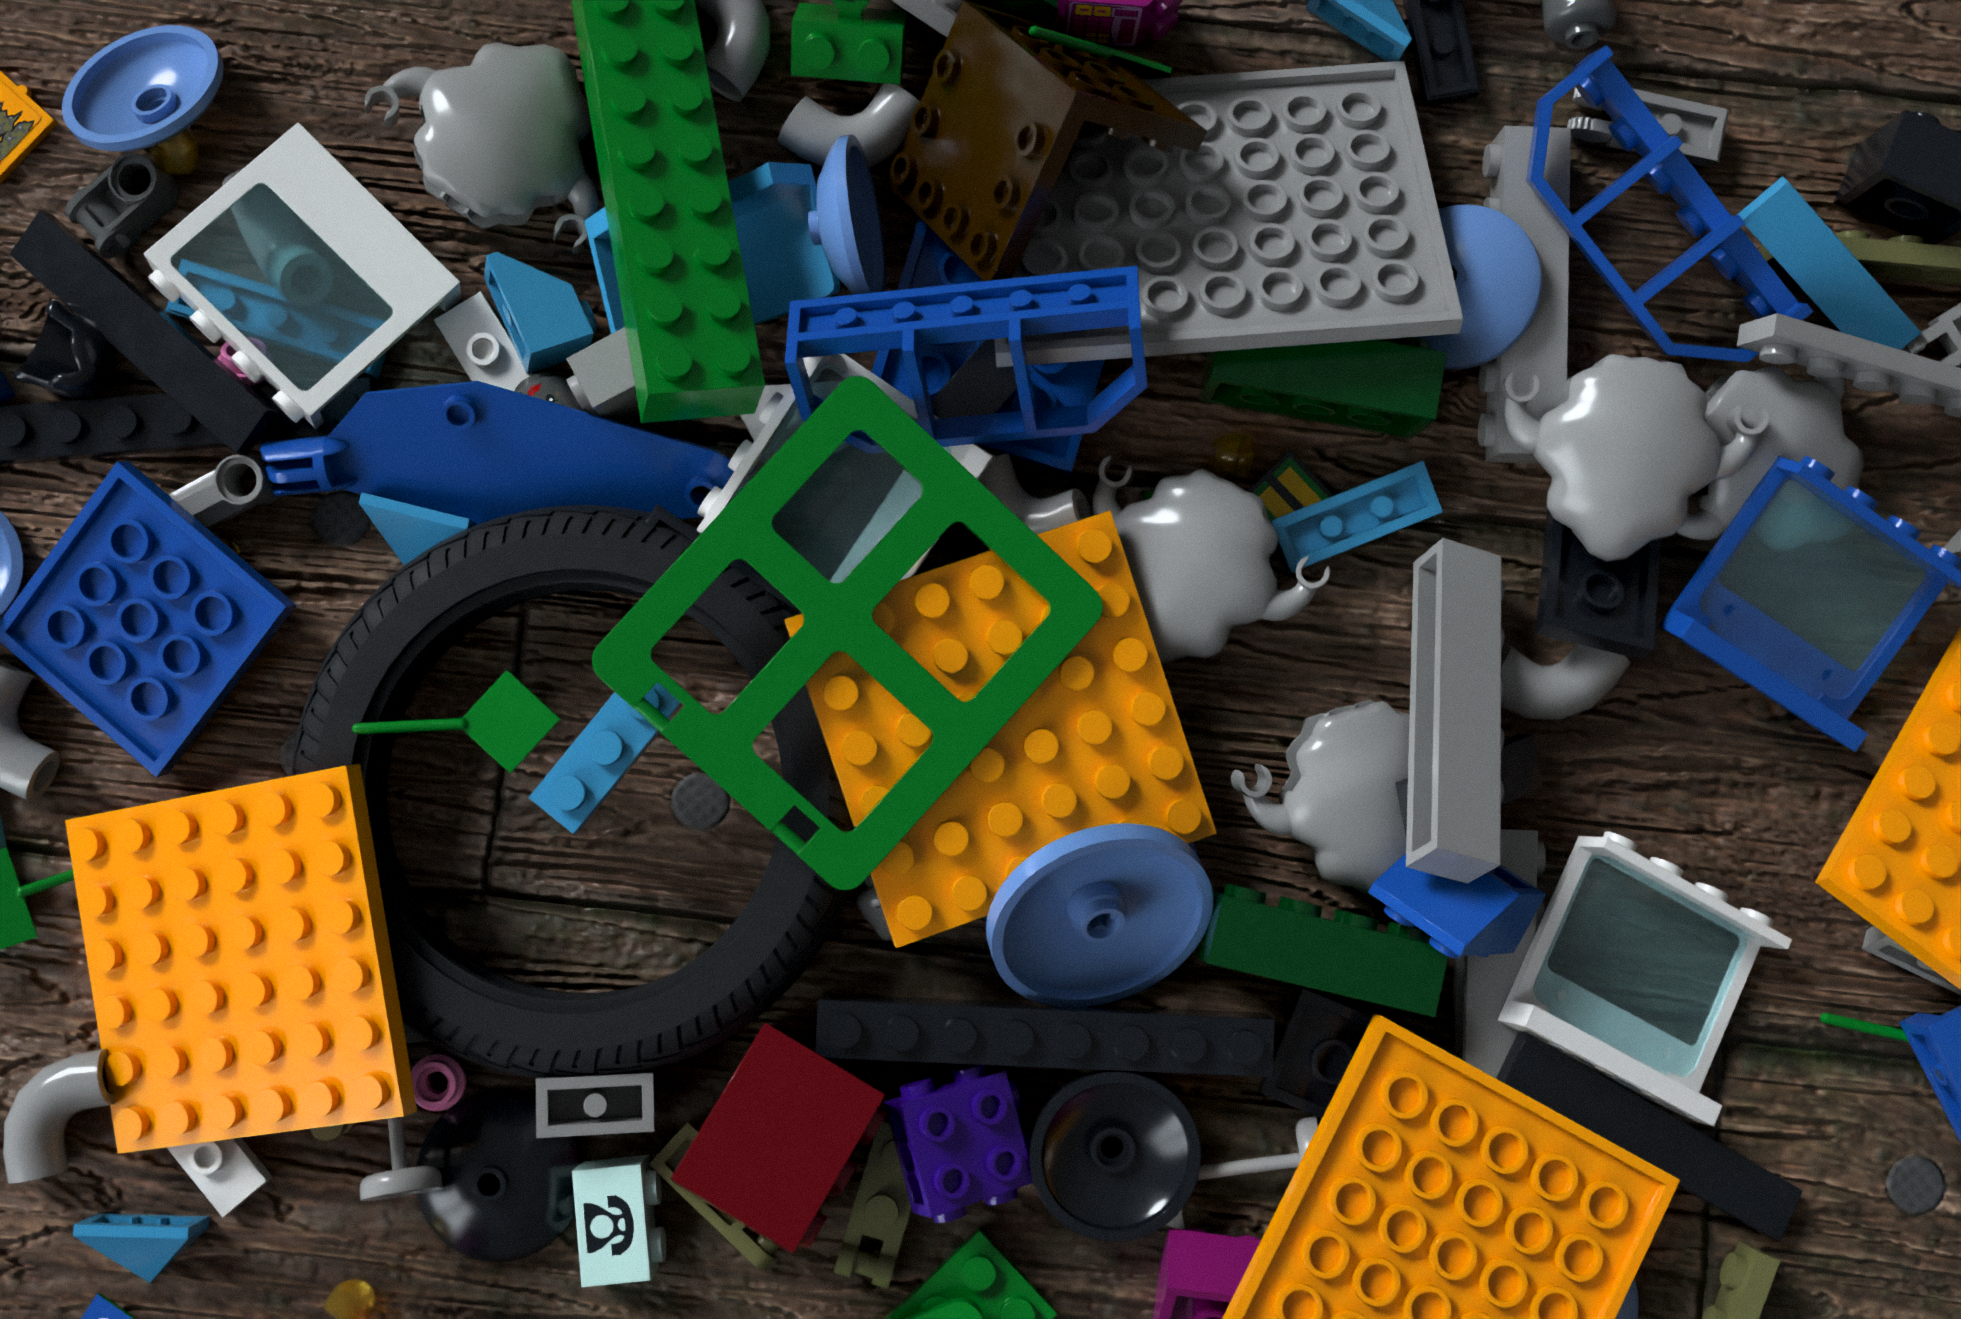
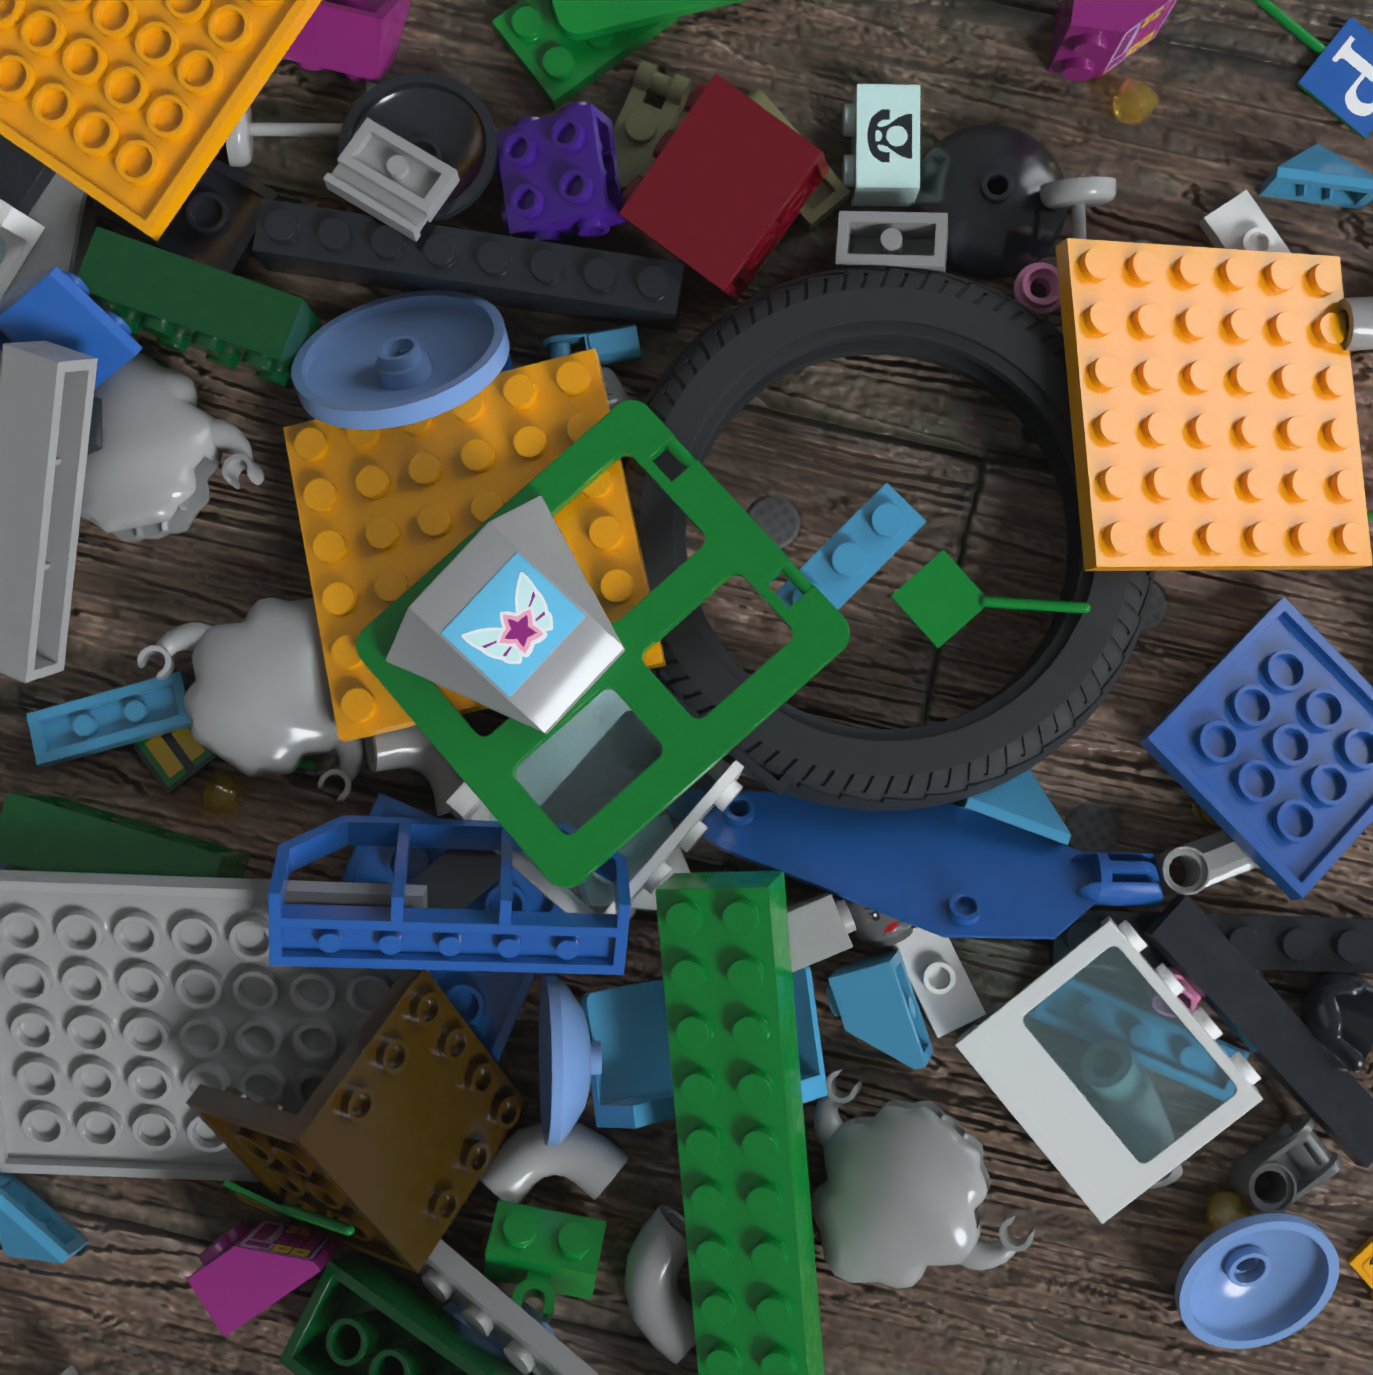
camera: 170 degrees left, 0 degrees up
(897, 966) = (612, 344): none -> dark azure bar
(938, 636) = (511, 622): none -> light grey wedge
(1134, 1110) = (391, 179): none -> light grey plate

